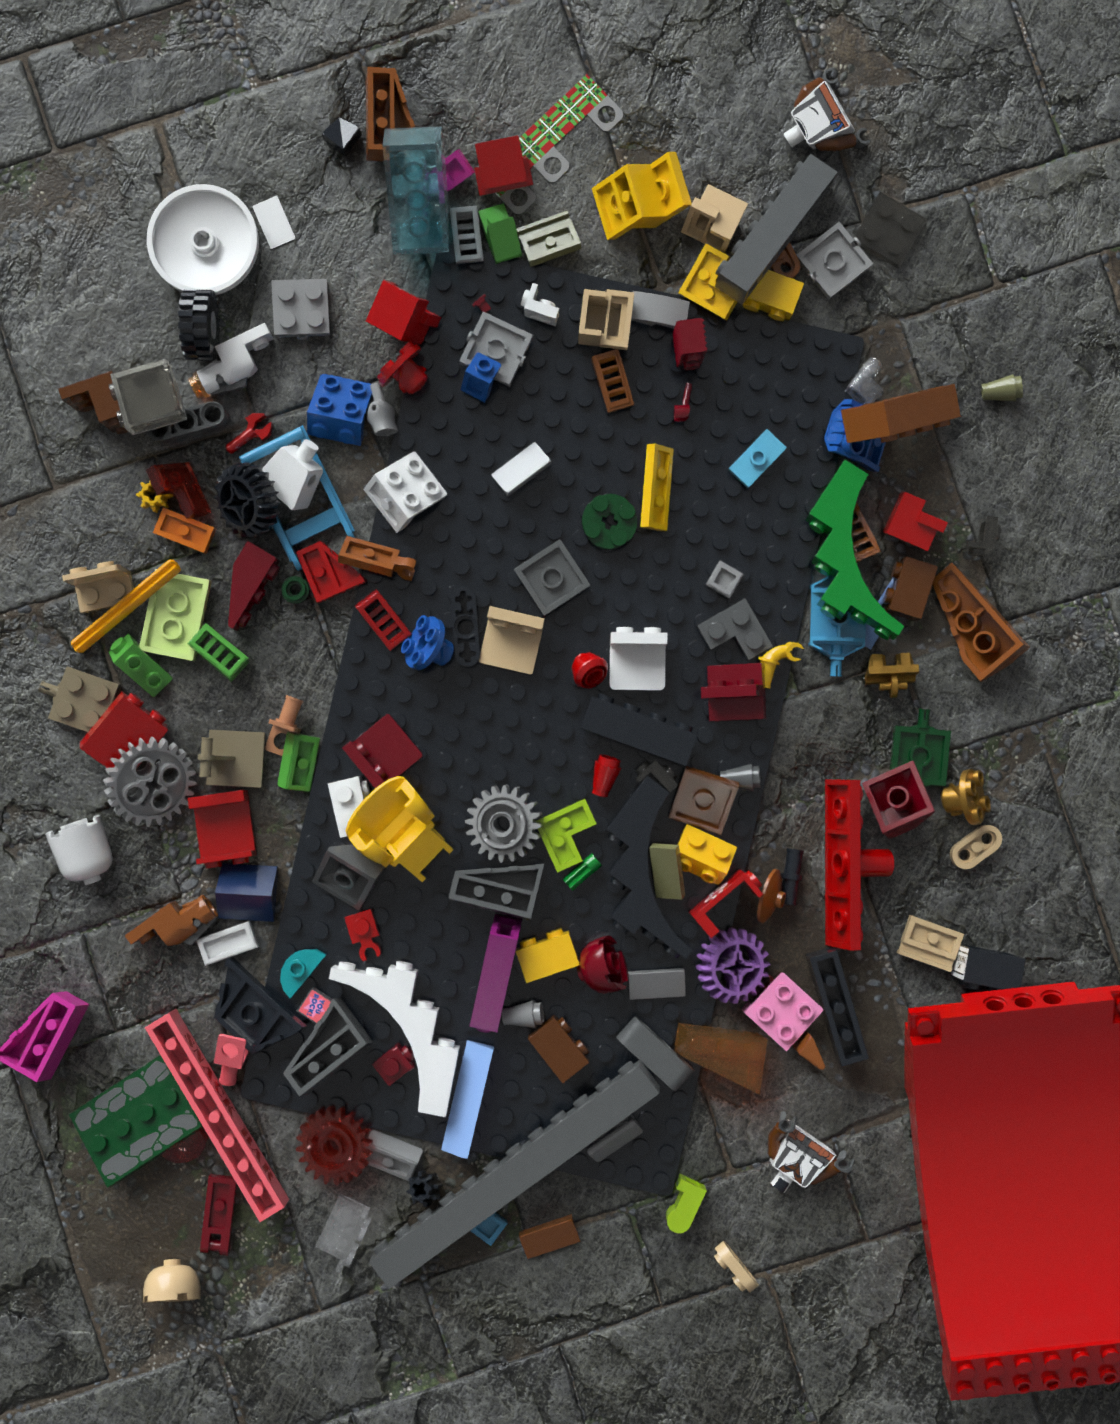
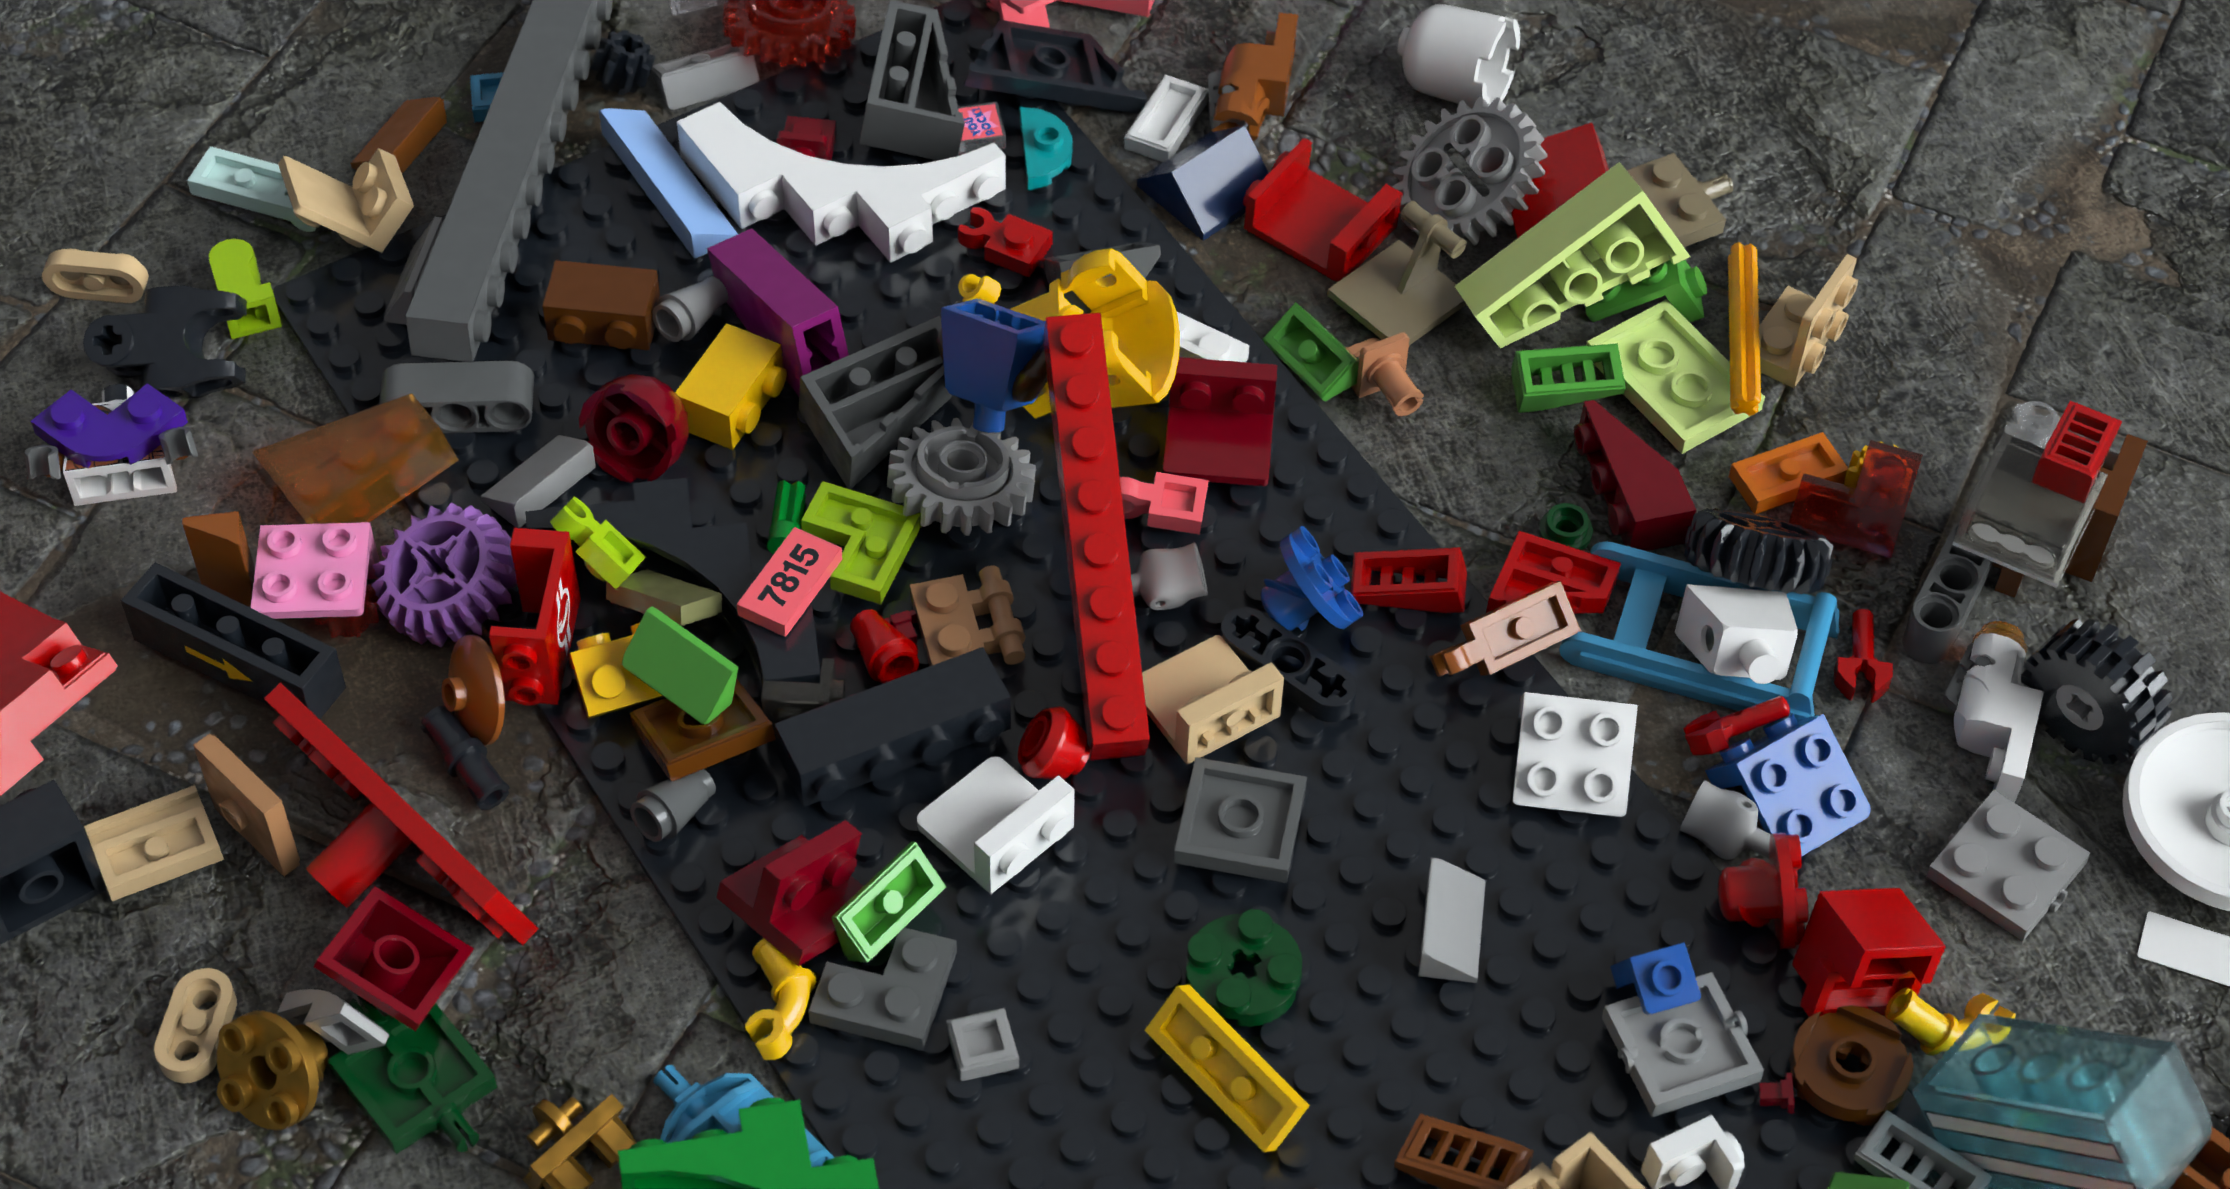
camera: 135 degrees right, 35 degrees down
(58, 460) = (2033, 422): none -> clear plate
(133, 394) = (2064, 474): none -> red slope
(165, 693) = (1571, 258): none -> yellowish green wedge
(337, 449) = (1712, 733): none -> red bar
(399, 273) = (1937, 1030): none -> yellow piece
(435, 738) = (1170, 502): none -> coral plate
(453, 849) = (992, 352): none -> blue torso
(456, 274) = (1844, 1094): none -> reddish brown plate
(474, 705) = (1169, 577): none -> light grey piece
(499, 728) = (1095, 537): none -> red brick
(570, 762) = (949, 622): none -> medium nougat plate
(586, 780) = (903, 622): none -> dark red piece
(611, 1206) = (359, 213): none -> tan bracket
(622, 825) = (789, 581): none -> coral tile
(630, 1259) = (244, 184): none -> light aqua plate
(674, 908) = (601, 547): none -> lime plate
(699, 822) = (680, 667): none -> bright green slope
(710, 657) = (886, 904): none -> bright green slope
(742, 1193) = (168, 341): none -> black piece
(807, 1152) = (90, 435): none -> dark purple plate
(892, 920) = (247, 804): none -> medium nougat plate
(938, 792) = (332, 1020): none -> light grey slope

